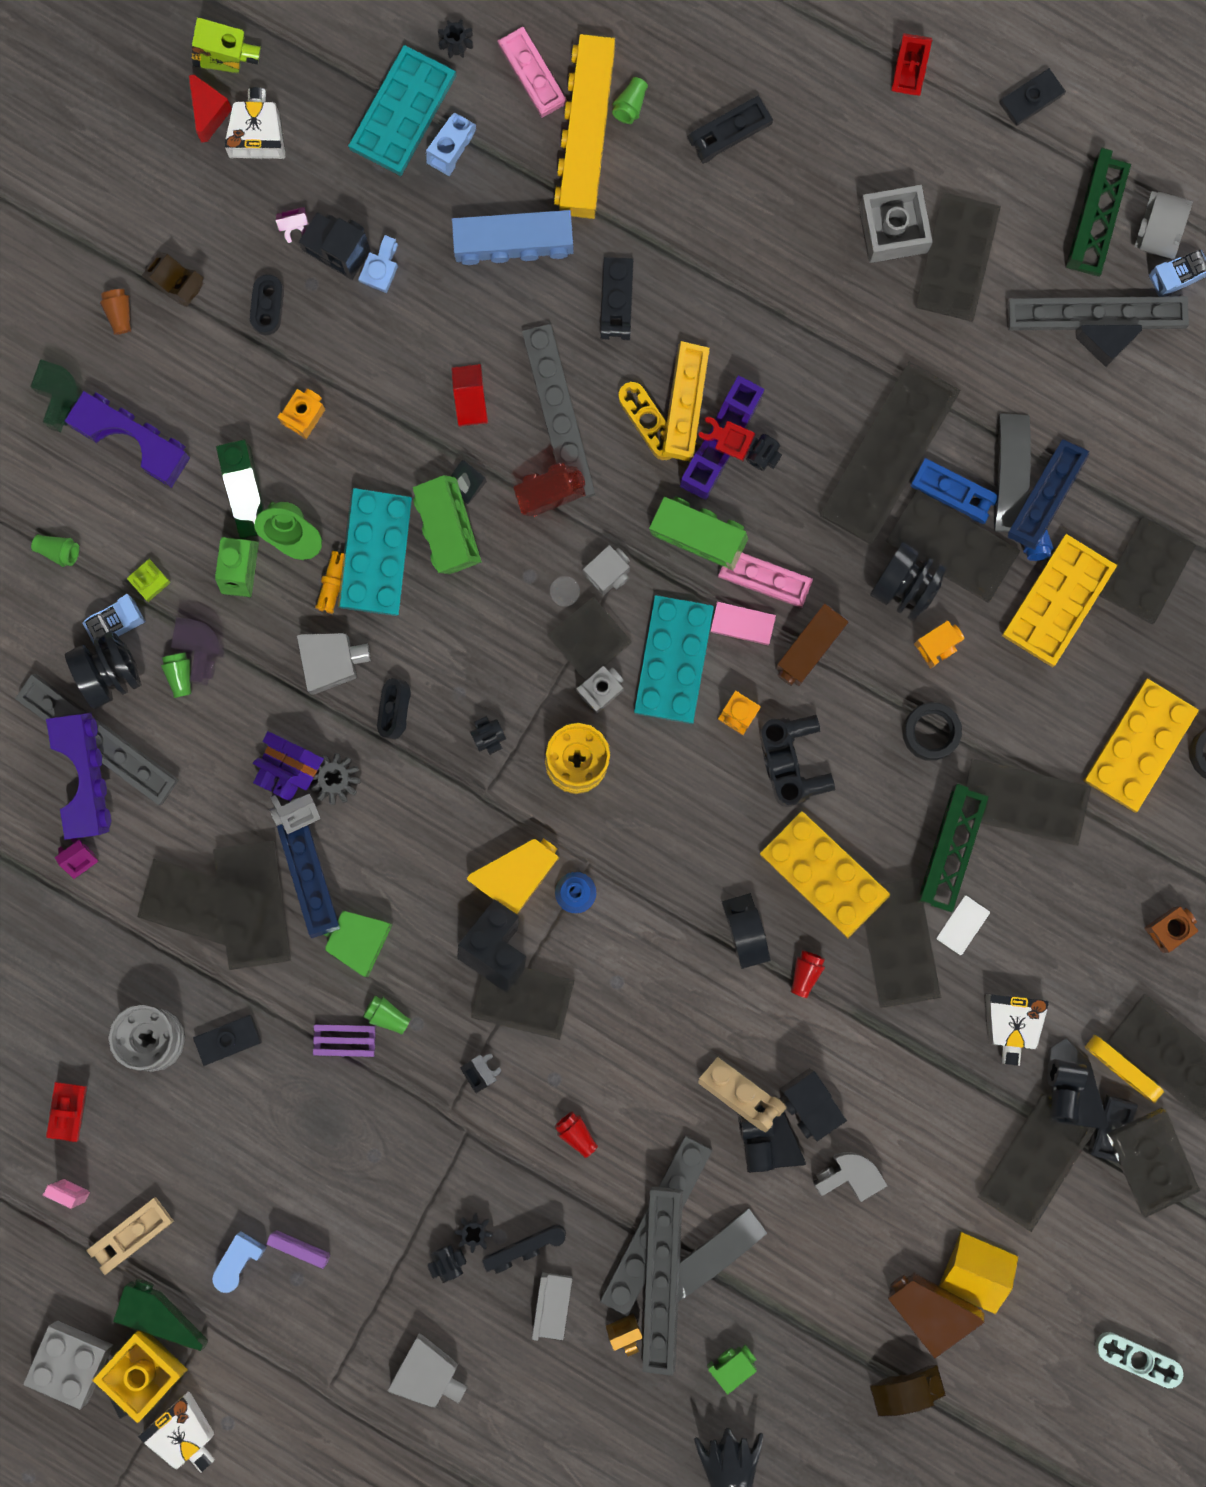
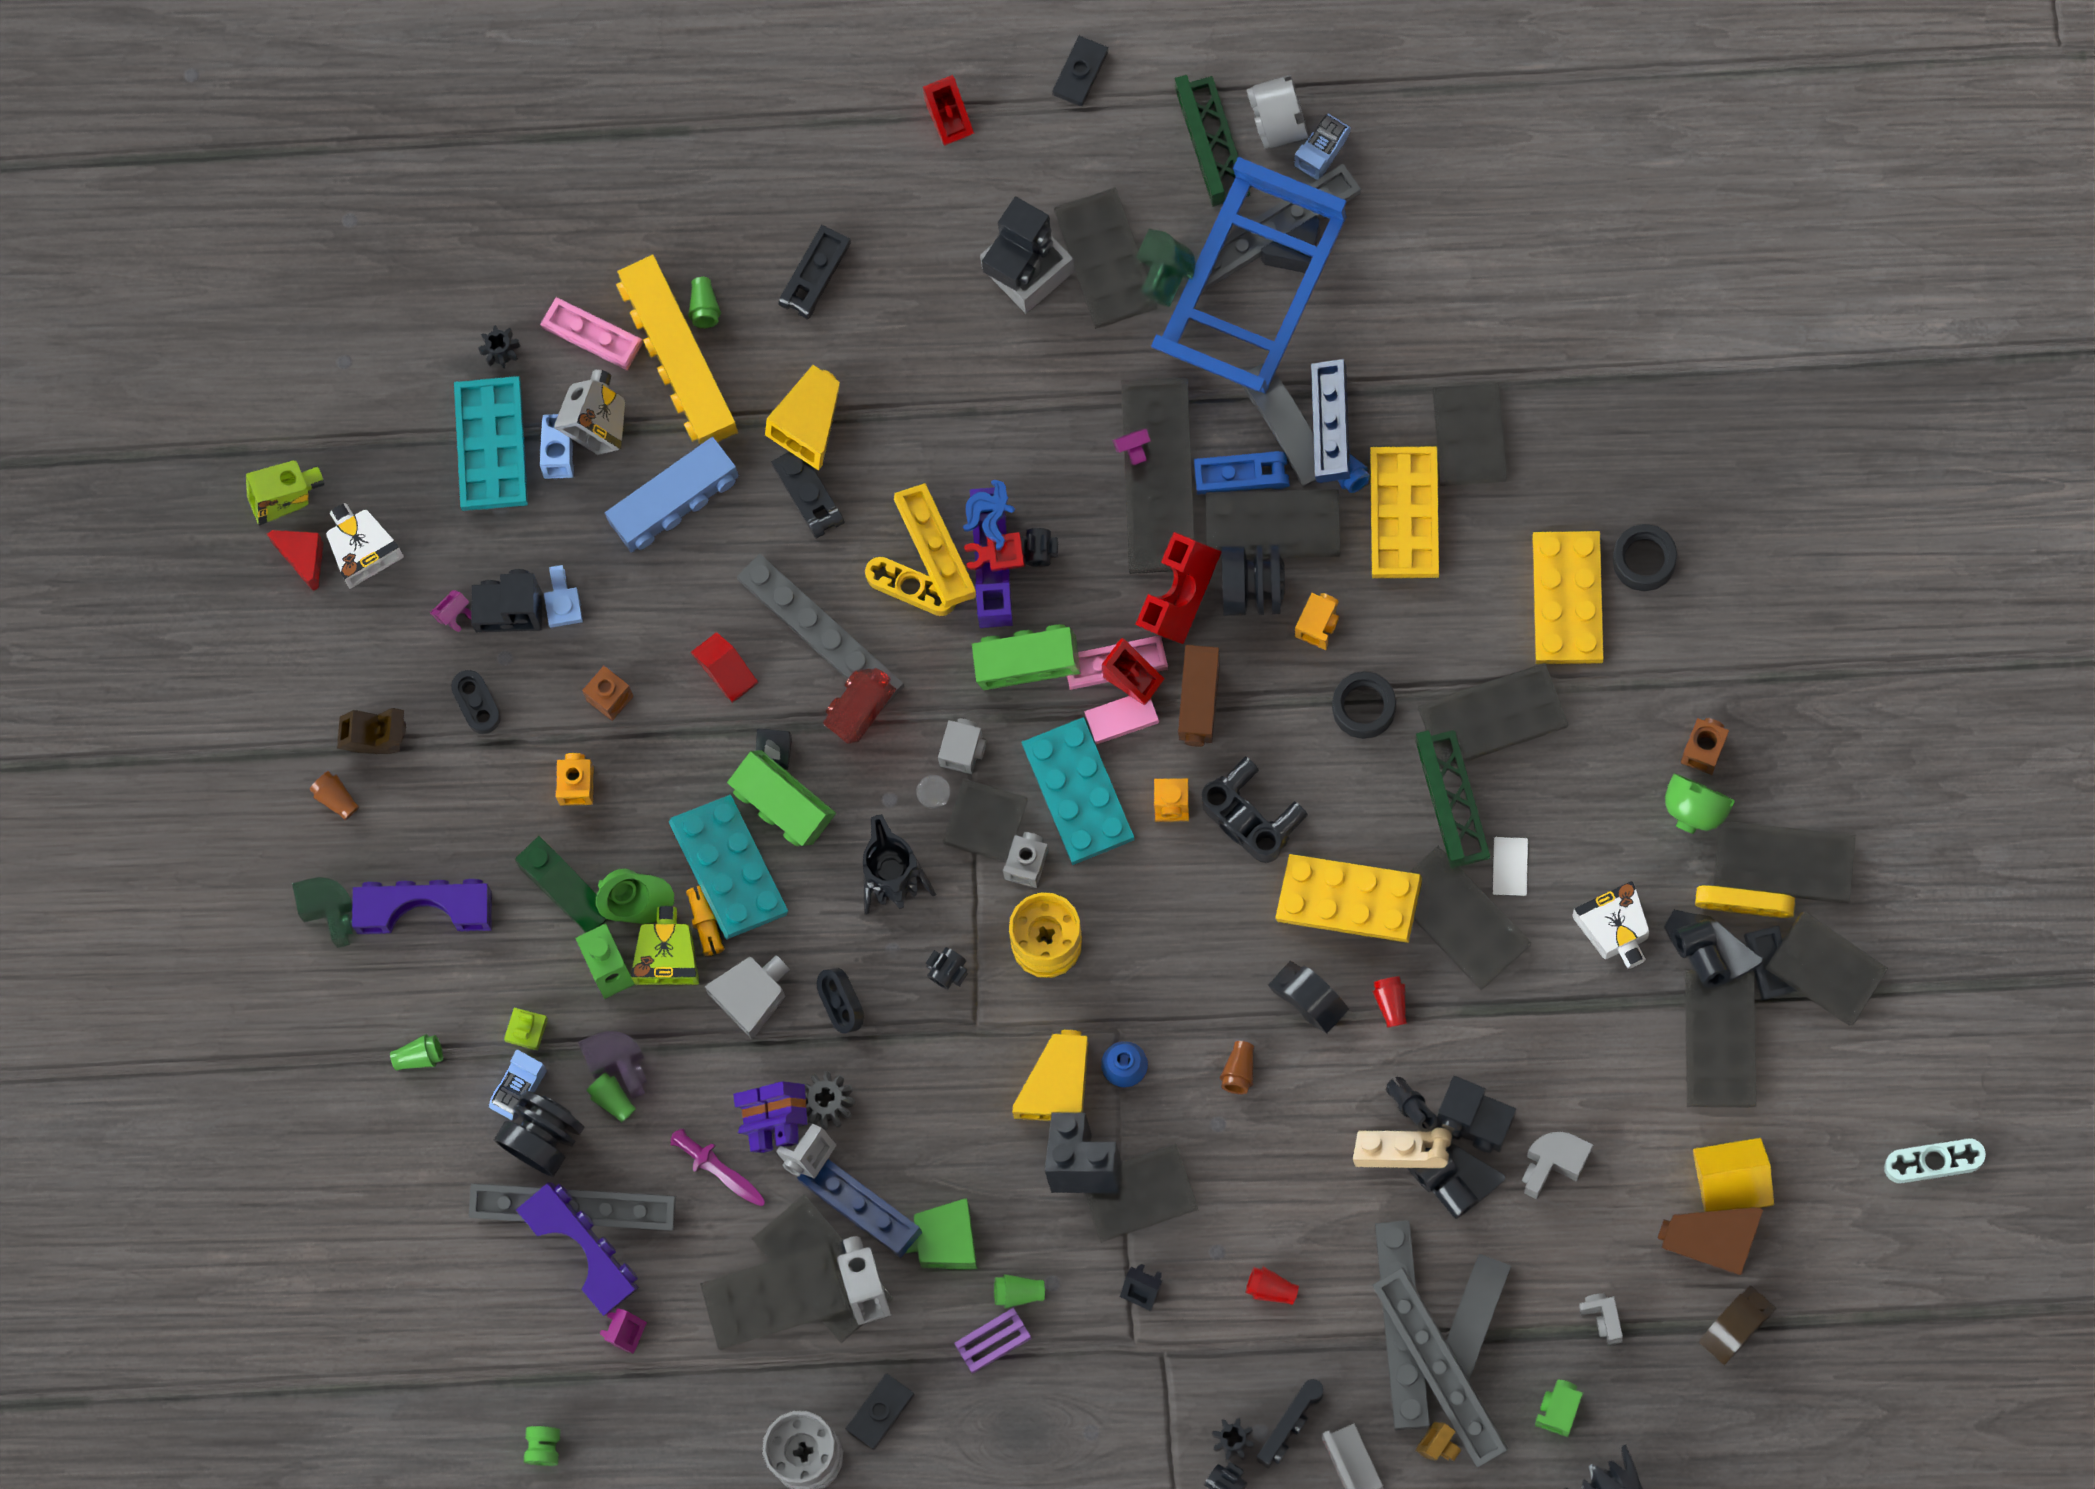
camera: 25 degrees left, 10 degrees down
(220, 767) = (707, 1160): none -> magenta sword
(266, 950) = (862, 1281): none -> light grey torso
(287, 588) = (665, 952): none -> lime torso
(368, 360) = (607, 693): none -> dark orange brick
(491, 135) = (593, 414): none -> light grey torso
(494, 630) = (890, 867): none -> black piece
(651, 239) = (806, 416): none -> yellow slope
(657, 953) = (1238, 1071): none -> dark orange cone
(741, 392) = (985, 502): none -> blue piece
(770, 1065) = (1411, 1104): none -> black pin
(771, 596) = (1131, 672): none -> red slope
(811, 1326) = (1608, 1323): none -> light grey bracket
(834, 568) = (1192, 569): none -> red arch
(885, 417) = (1132, 443): none -> magenta tile
(898, 205) = (1020, 243): none -> black brick
(1004, 292) = (1168, 263): none -> clear green brick
(1132, 290) = (1285, 188): none -> blue piece
(1136, 972) = (1696, 805): none -> bright green cylinder

